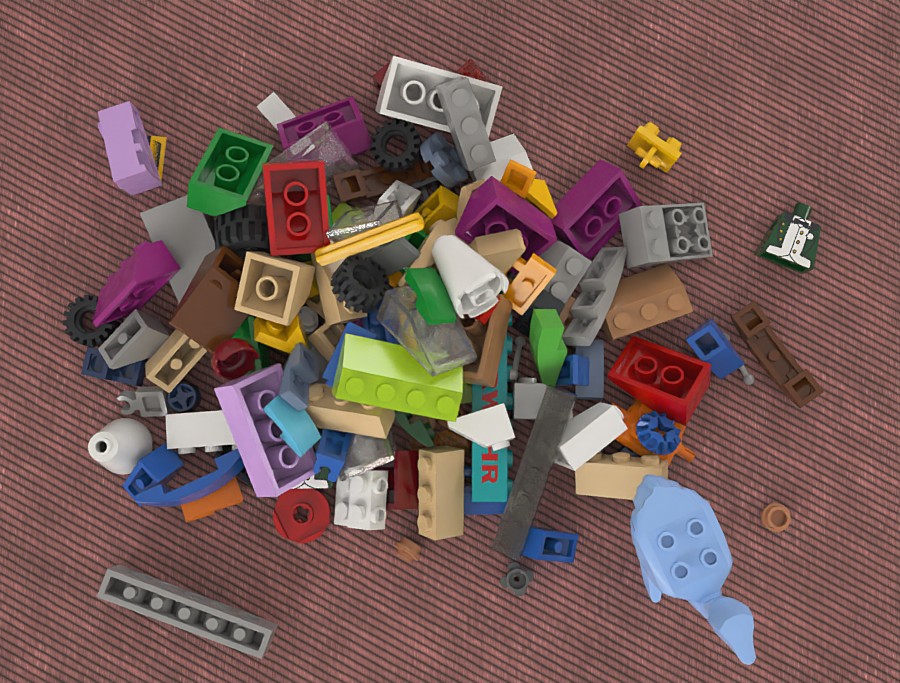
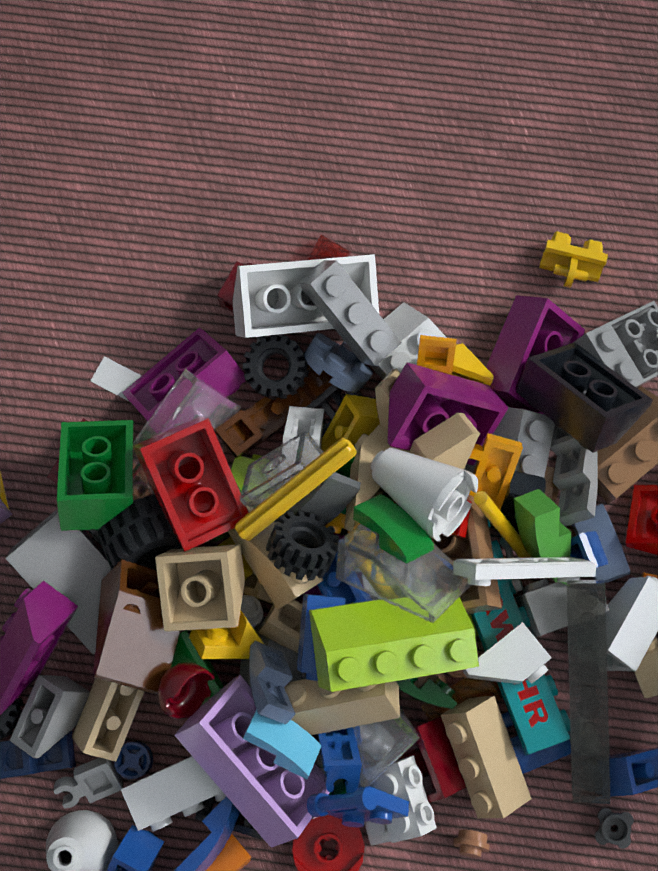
camera: 15 degrees left, 5 degrees down
(331, 491) = (359, 807): none -> blue plate
(485, 352) = (483, 570): none -> white plate
(518, 326) = (501, 524): none -> yellow bar
(617, 251) = (582, 395): none -> black slope

